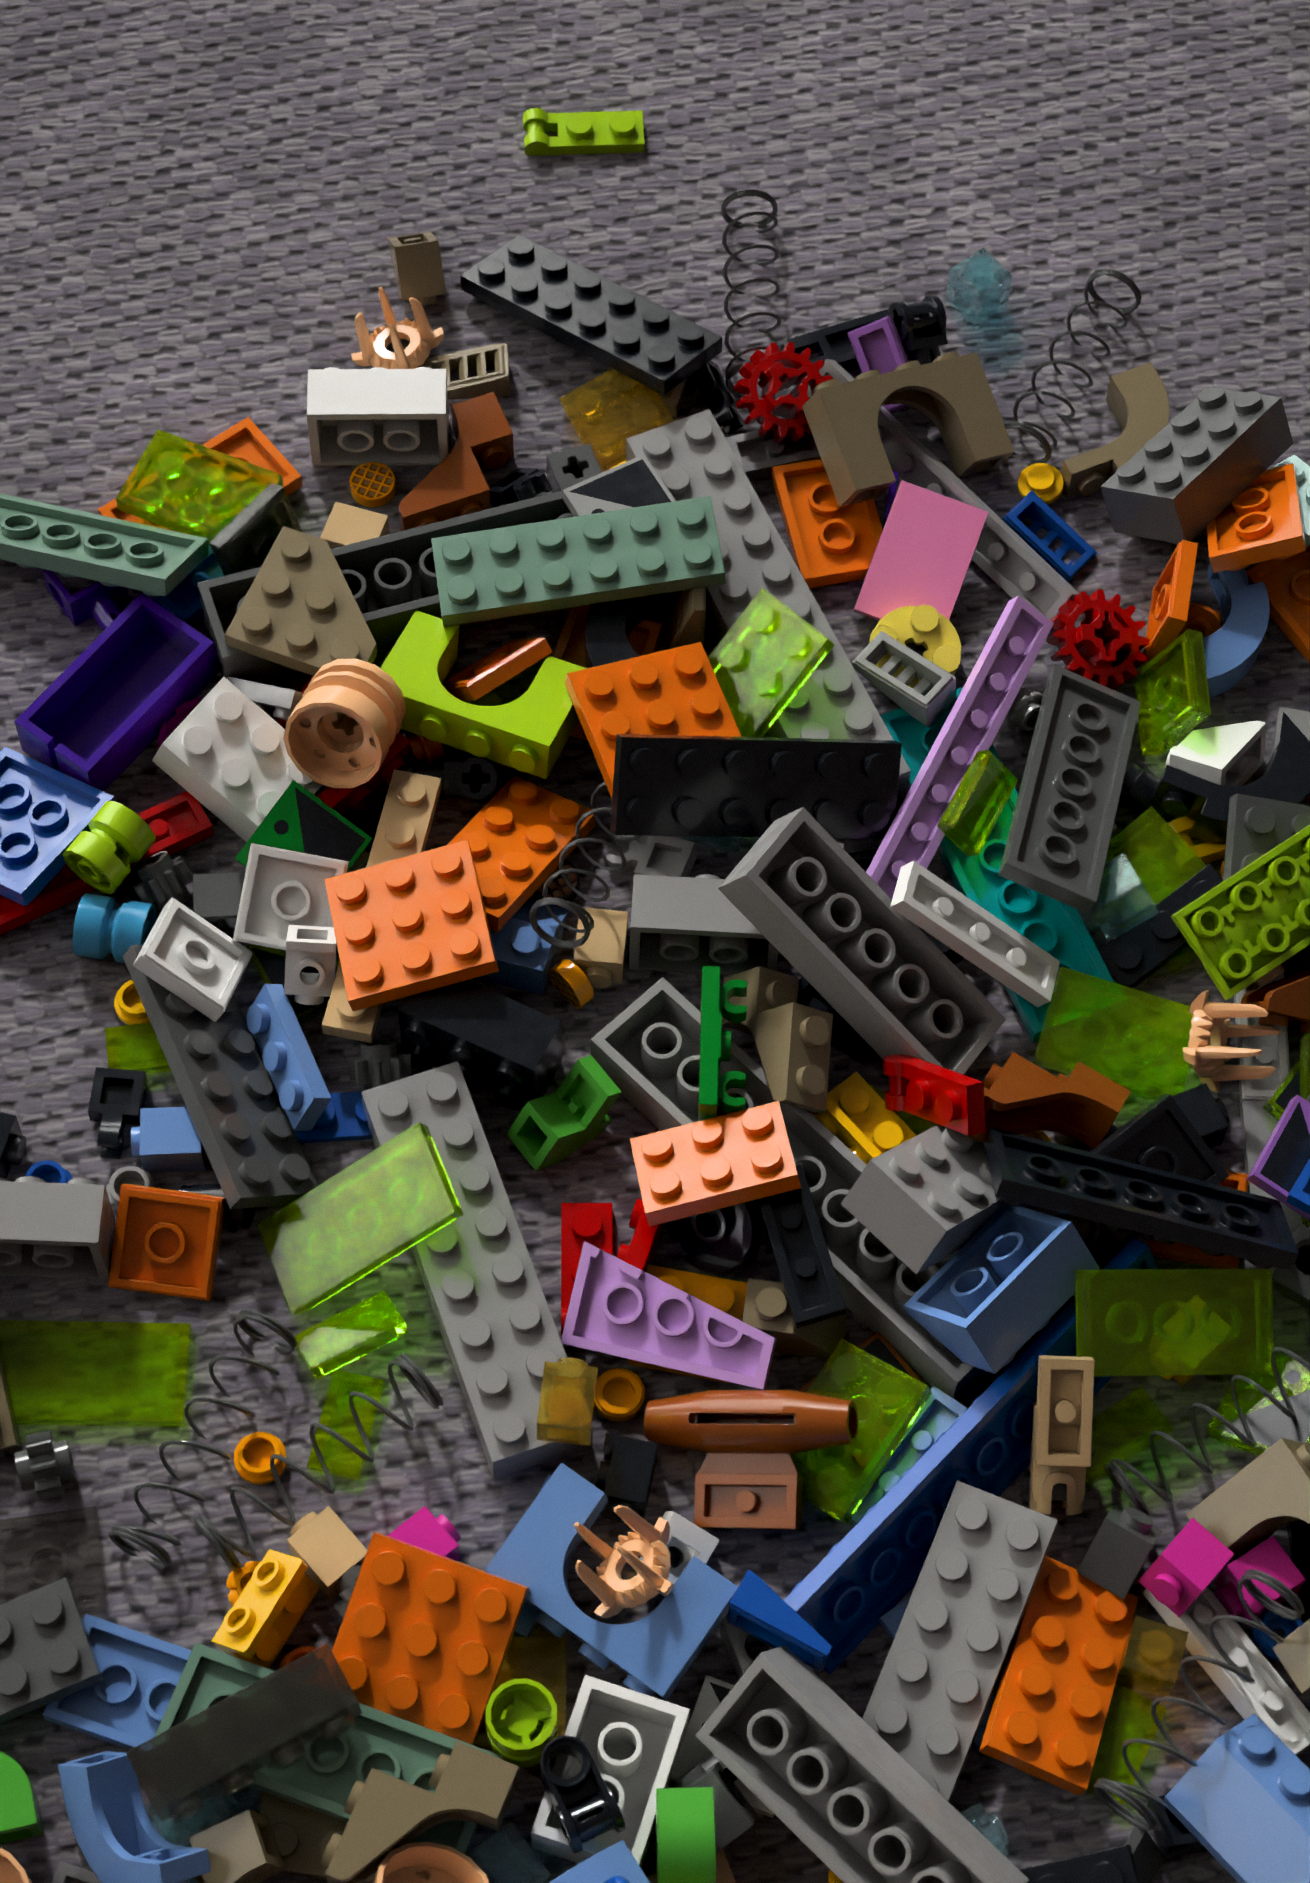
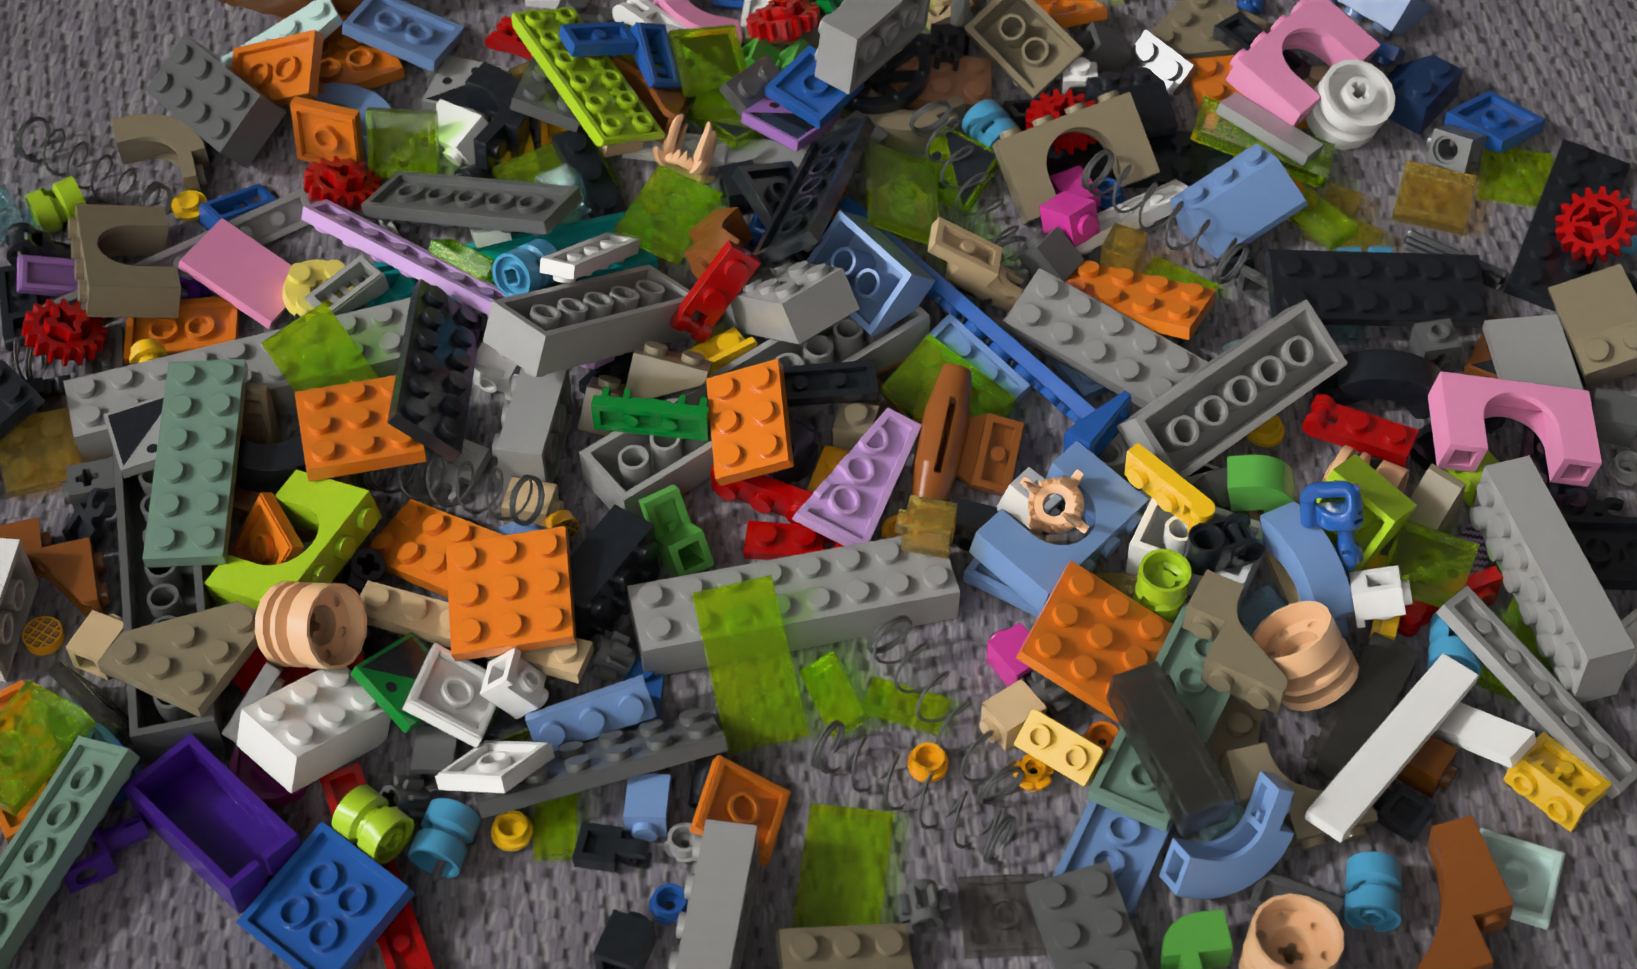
camera: 80 degrees left, 10 degrees down
(660, 1717) = (1167, 487): none -> yellow plate
(769, 486) = (146, 350): none -> yellow plate
(955, 862) = (519, 268): none -> dark azure wheel
(1002, 342) = (54, 206): none -> lime wheel

